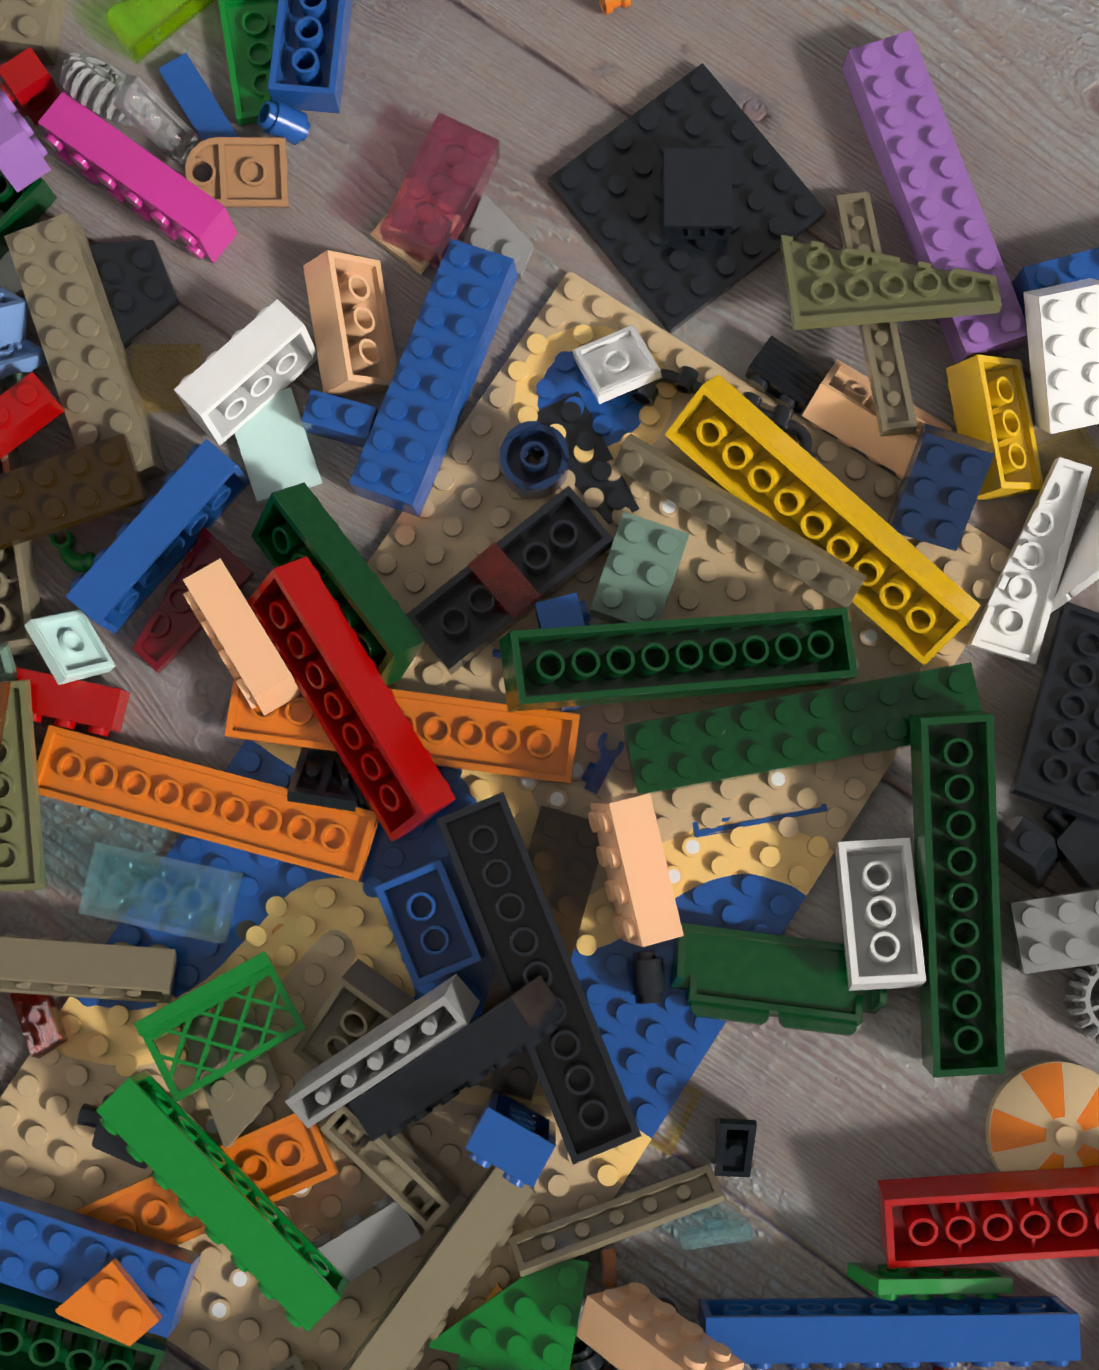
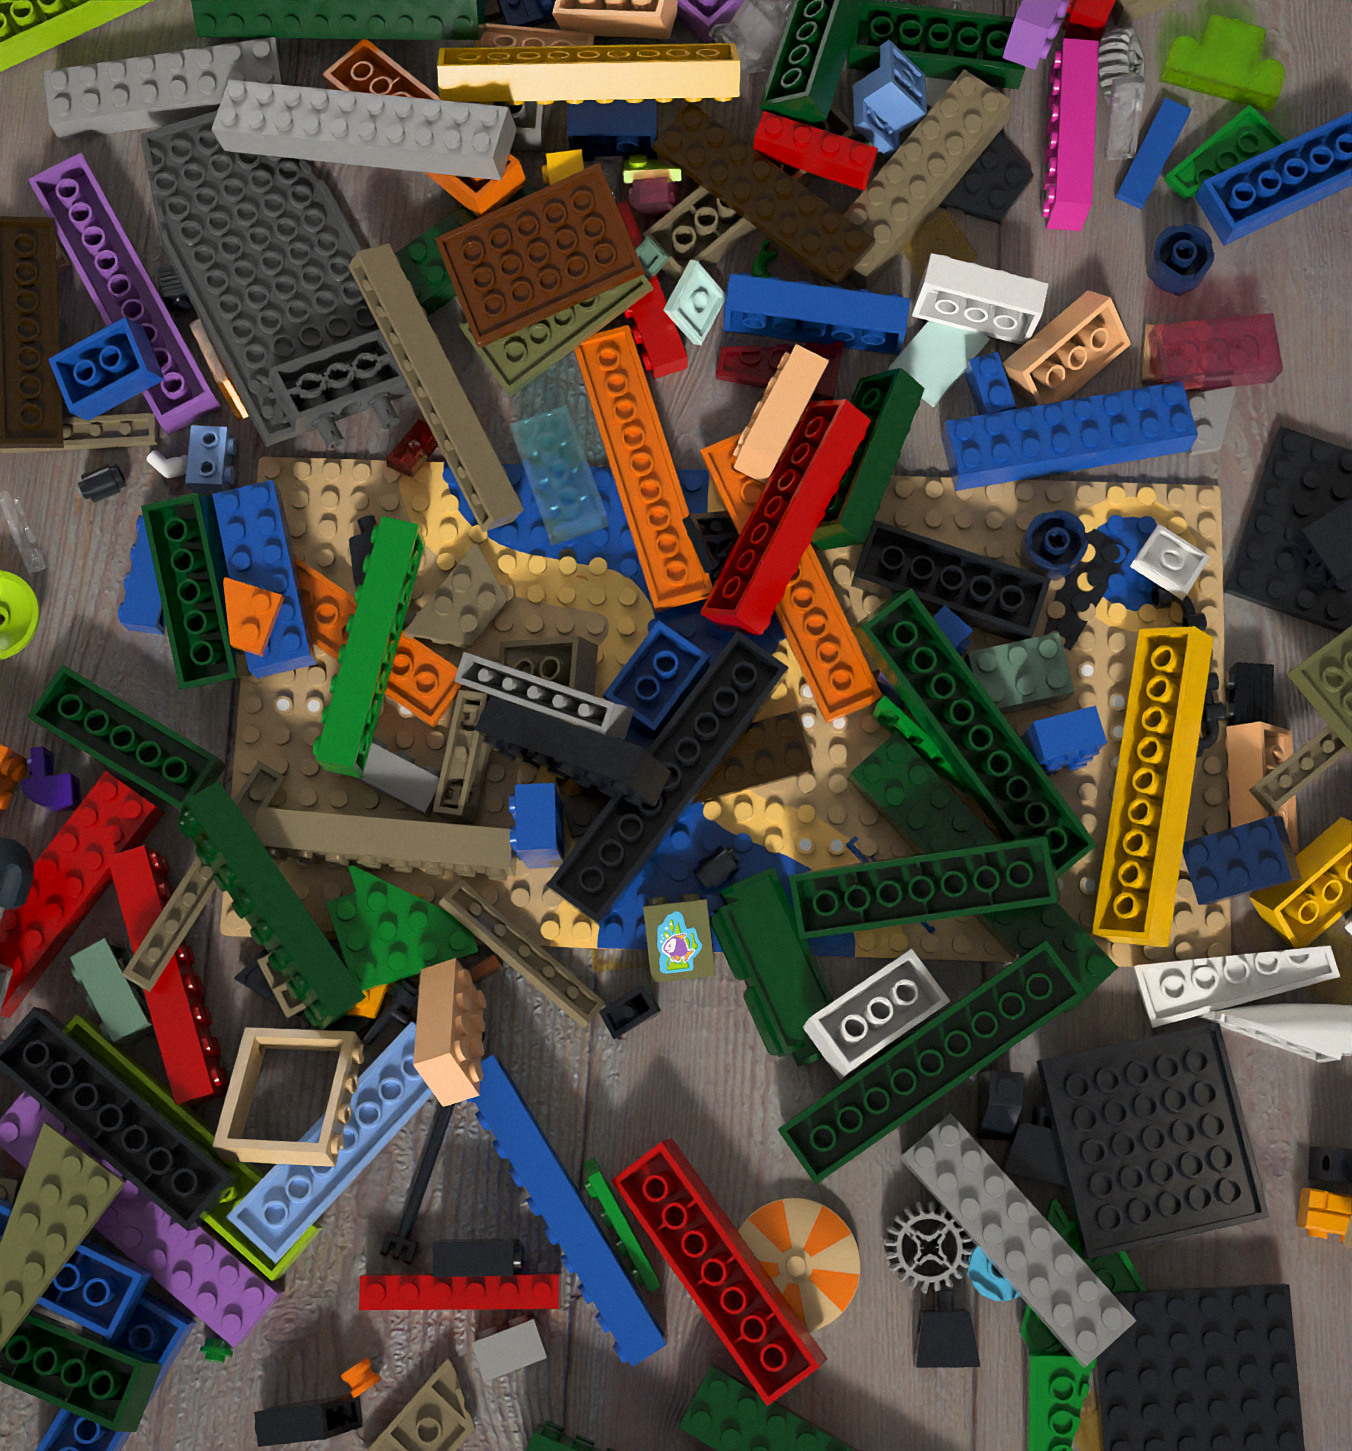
camera: 60 degrees right, 5 degrees down
(205, 998) = (497, 550): green fence -> none
(245, 171) = (1130, 205): medium nougat plate -> none
(284, 122) = (1187, 207): blue brick -> none
(332, 178) = (1180, 259): none -> dark blue brick
(504, 581) = (946, 574): clear red plate -> none
(596, 773) = (846, 737): clear blue plate -> none
(608, 719) = (894, 720): none -> green wing
(635, 869) = (794, 802): light nougat brick -> none
(693, 1057) = (678, 938): none -> olive panel
(715, 1232) = (557, 1036): clear light blue plate -> none
(734, 575) = (1065, 740): none -> blue brick
(739, 520) = (1110, 699): dark tan plate -> none
(795, 796) = (925, 887): none -> dark green brick

